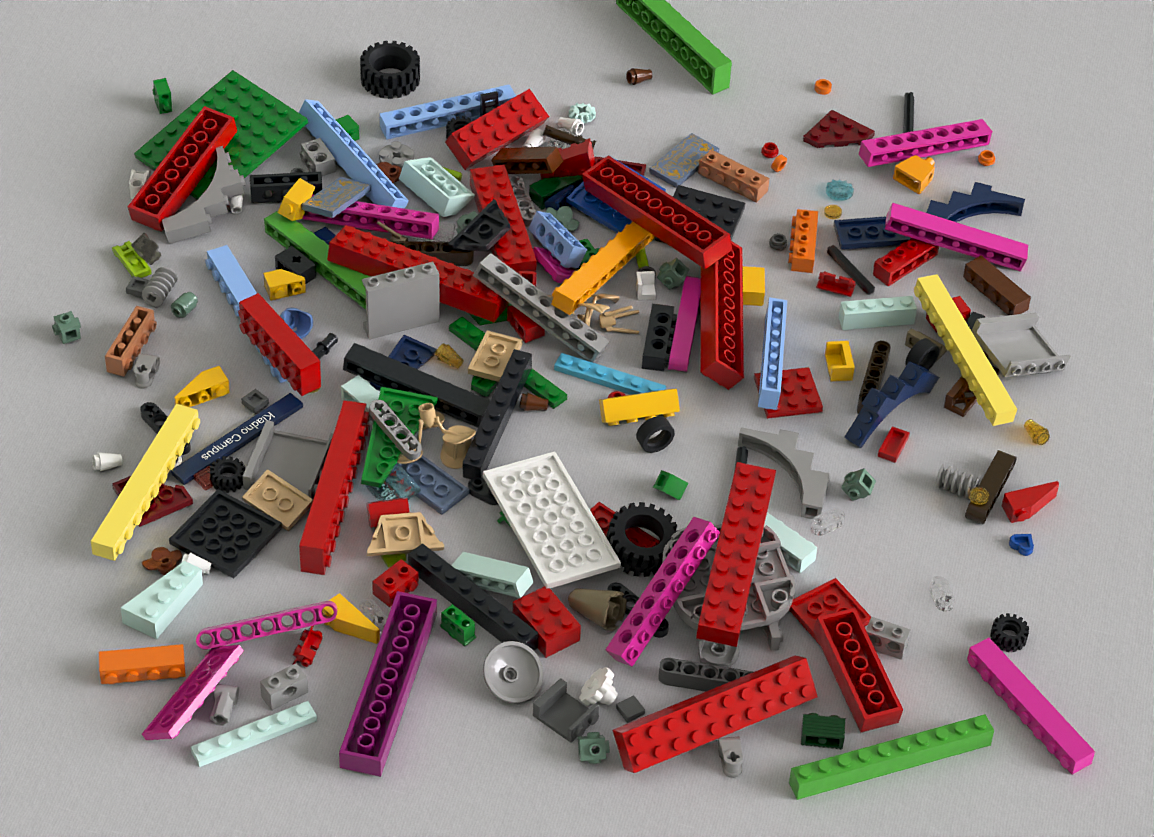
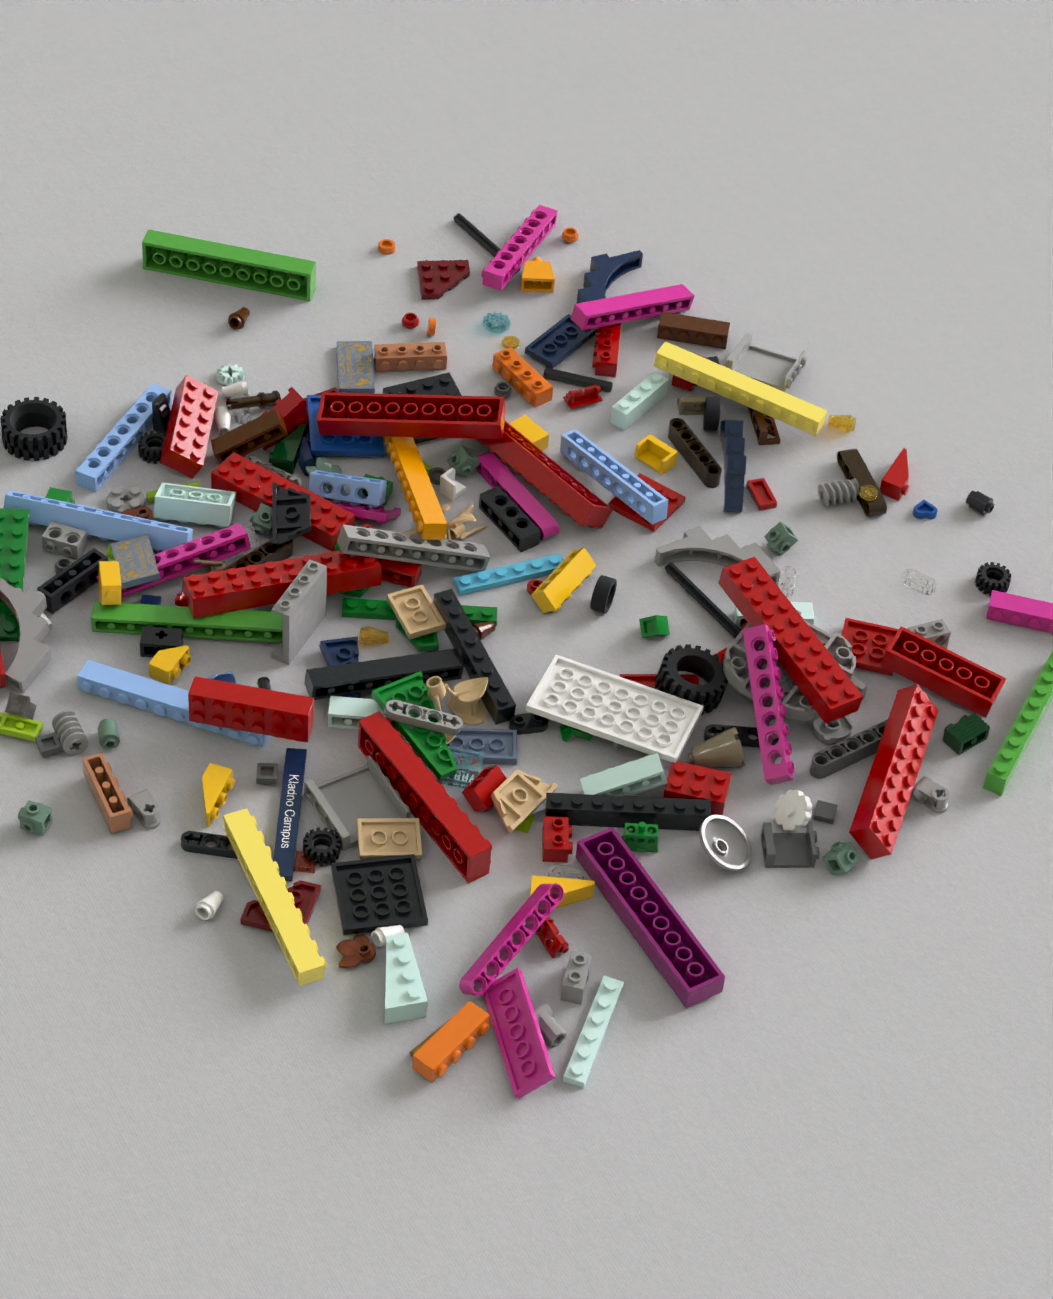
camera: 45 degrees left, 0 degrees up
(1078, 566) = (980, 502): none -> black brick

